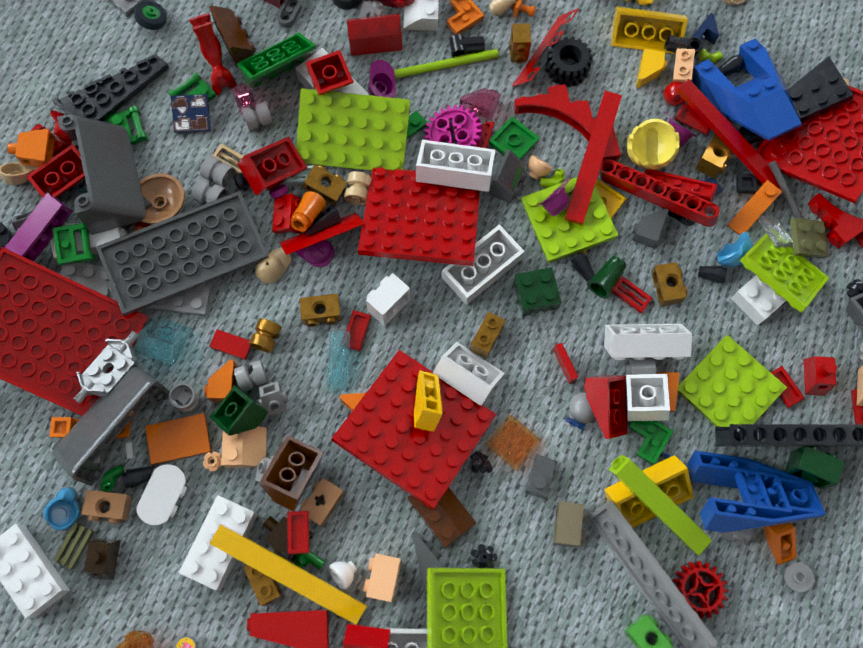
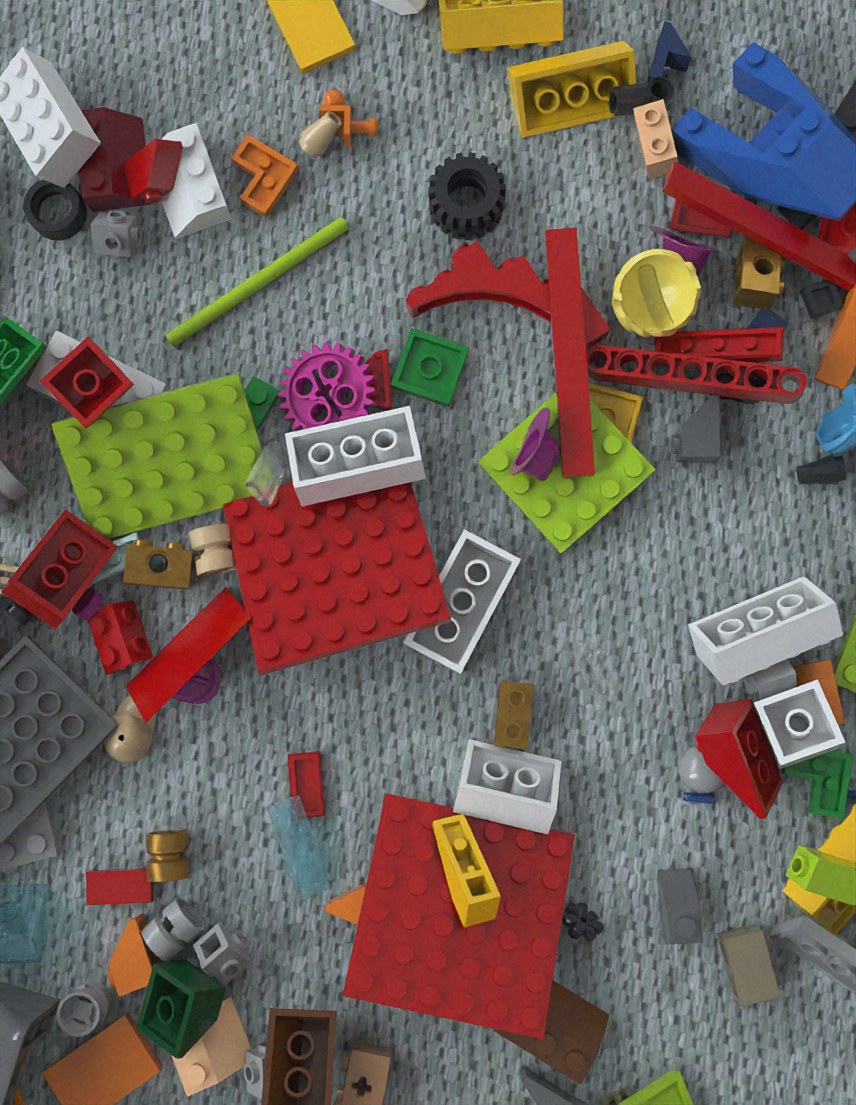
camera: 15 degrees left, 10 degrees up
(207, 461) = (163, 1092): light nougat plate -> none
(308, 210) = (149, 625): orange plant -> none
(311, 304) = (217, 779): pearl gold brick -> none
(326, 219) = (179, 629): black slope -> none
(375, 34) = (131, 270): red slope -> none
(382, 79) = (178, 349): magenta piece -> none
(388, 299) = (335, 723): white brick -> none
(404, 159) = (268, 472): none -> clear tile
(461, 46) = (283, 233): black piece -> none
(479, 557) = (640, 1063): black plant -> none
(482, 102) = (353, 322): clear pink slope -> none
(508, 177) = (447, 438): dark grey slope -> none
(512, 442) = (616, 867): clear orange plate -> none
(520, 43) = (376, 195): pearl gold brick -> none
(522, 78) = (415, 179): red piece -> none
(537, 291) = (563, 612): dark green brick -> none
(538, 167) = (487, 399): light nougat brick -> none
(557, 178) = (519, 411): lime arm -> none
(565, 363) = (650, 711): red tile -> none
(583, 266) = (617, 539): black cone -> none
(607, 277) = (663, 543): dark green plant -> none
(648, 298) = (683, 547): red tile -> none
(650, 66) = (599, 152): yellow slope -> none
(666, 294) = (760, 535): pearl gold brick -> none
(671, 96) = (651, 187): red brick -> none
(704, 55) = (683, 102): lime arm -> none
(732, 65) = (728, 101): black cone -> none

